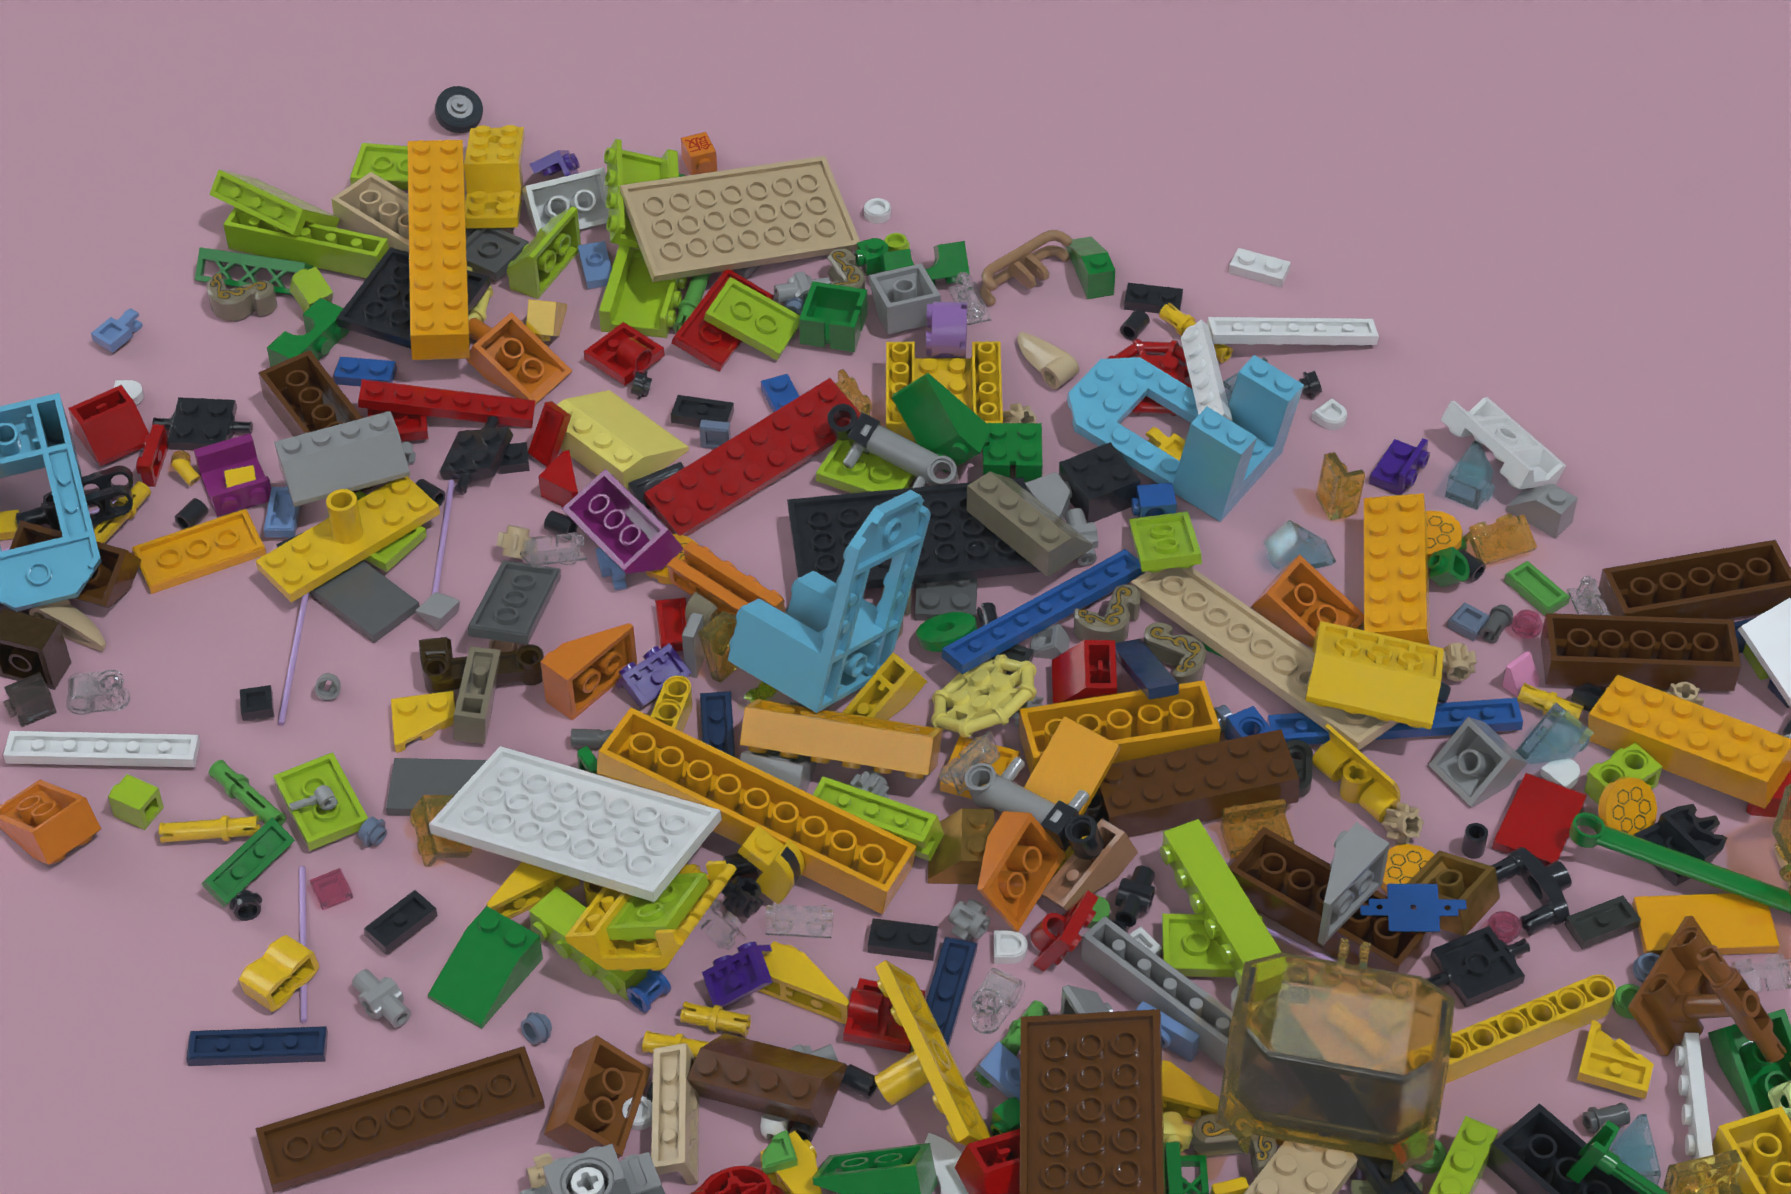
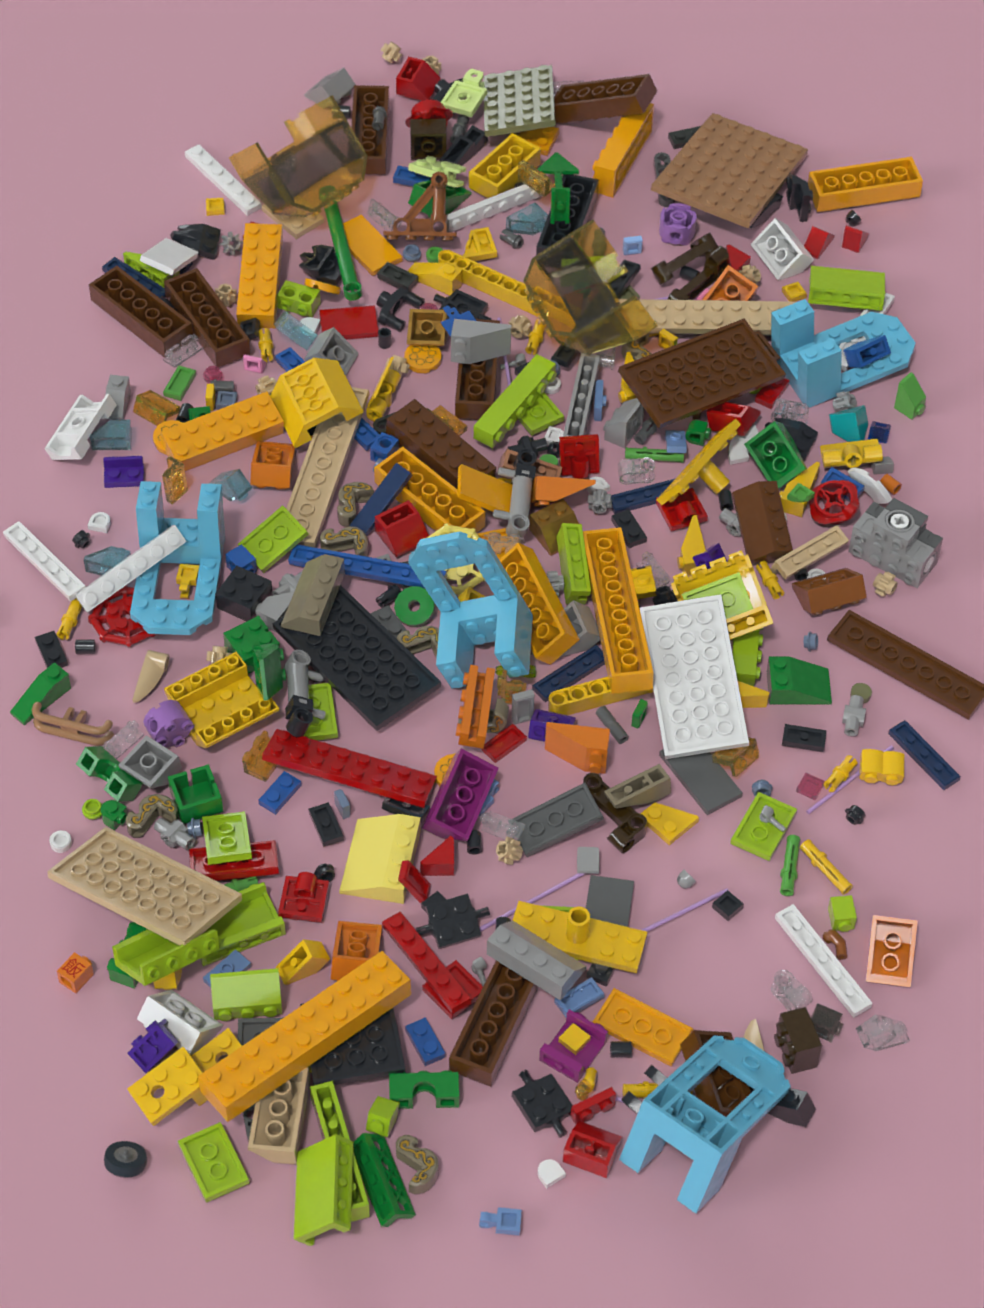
camera: 125 degrees left, 5 degrees up
(106, 780) = (839, 942): none -> dark orange arm
(248, 862) = (831, 830): green plate -> none
(315, 927) = (840, 773): none -> yellow pin
(410, 1036) = (862, 690): none -> olive tile
(1480, 596) = (210, 396): none -> yellow tile
(1571, 964) = (438, 276): none -> yellow slope

